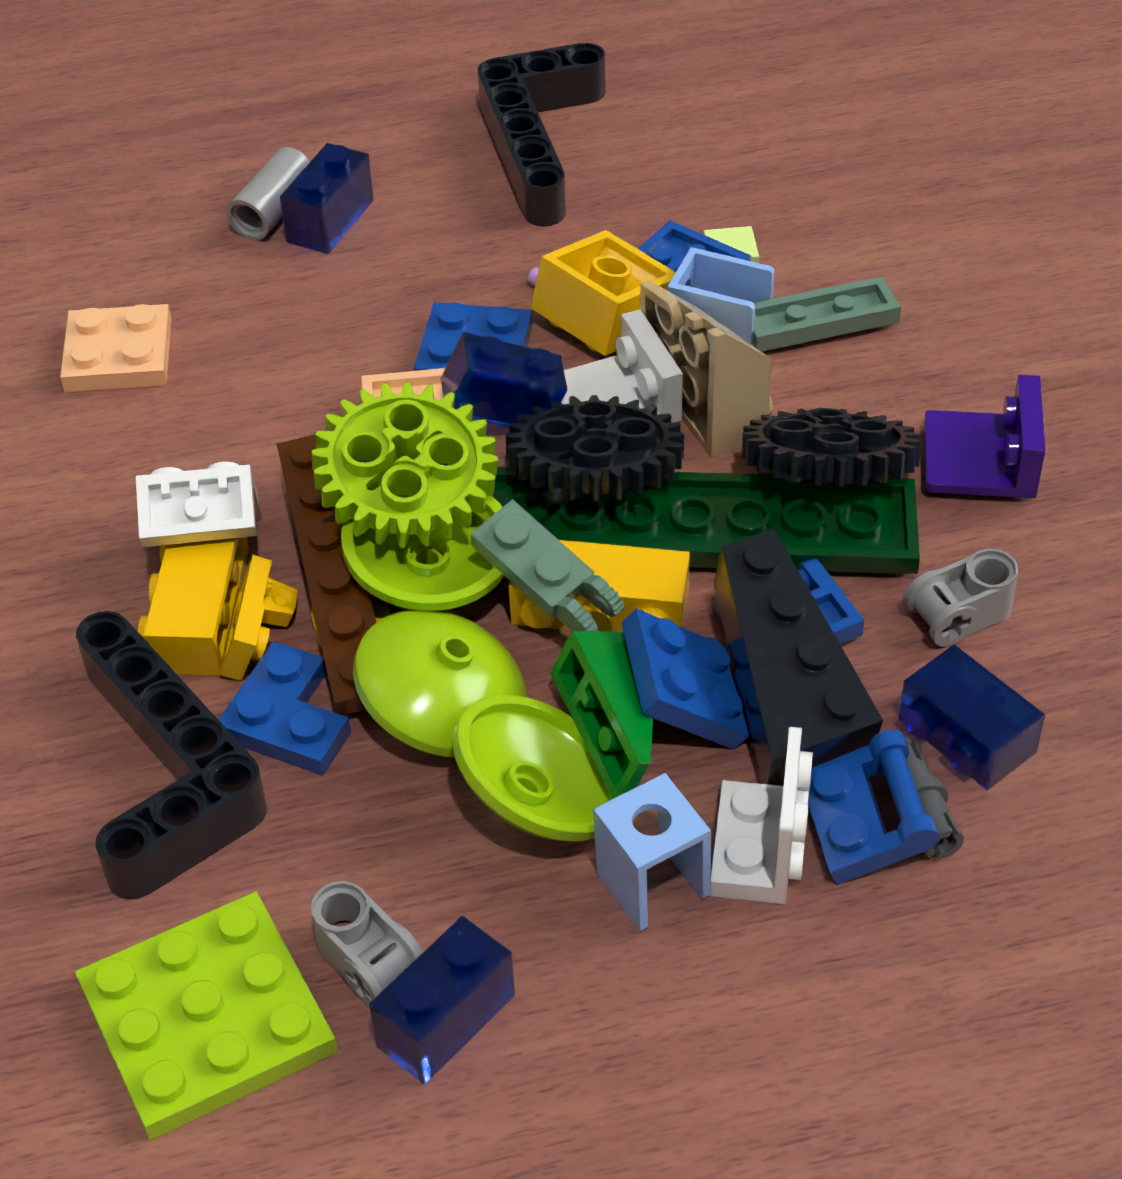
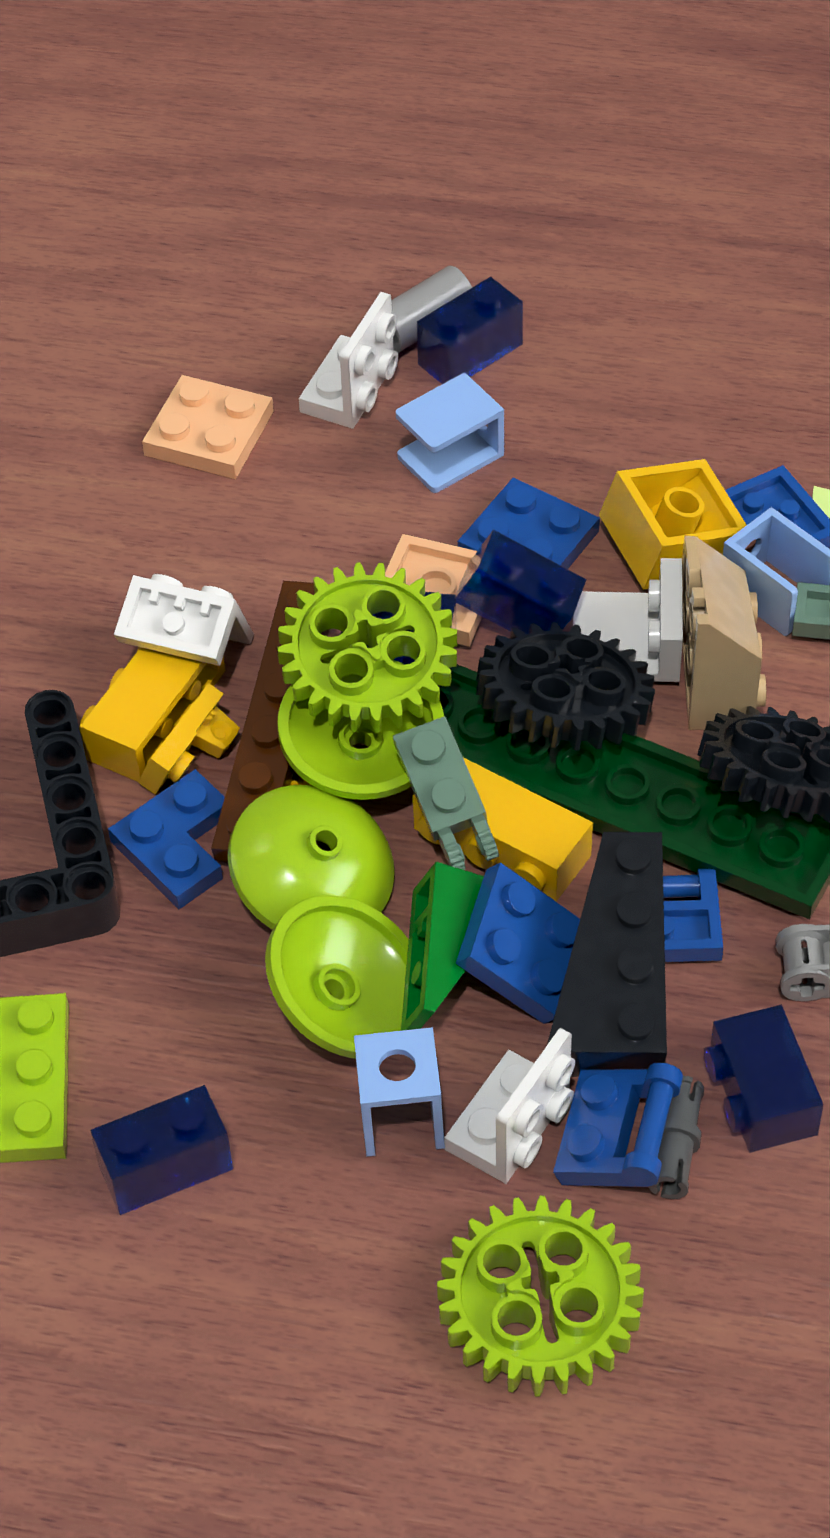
camera: 25 degrees right, 5 degrees up
(233, 263) = (354, 369): none -> white bracket
(362, 286) = (451, 432): none -> light blue piece
(369, 949) = (125, 1079): light grey piece -> none
(512, 96) = (713, 266): black beam -> none
(888, 989) = (483, 1304): none -> lime gear

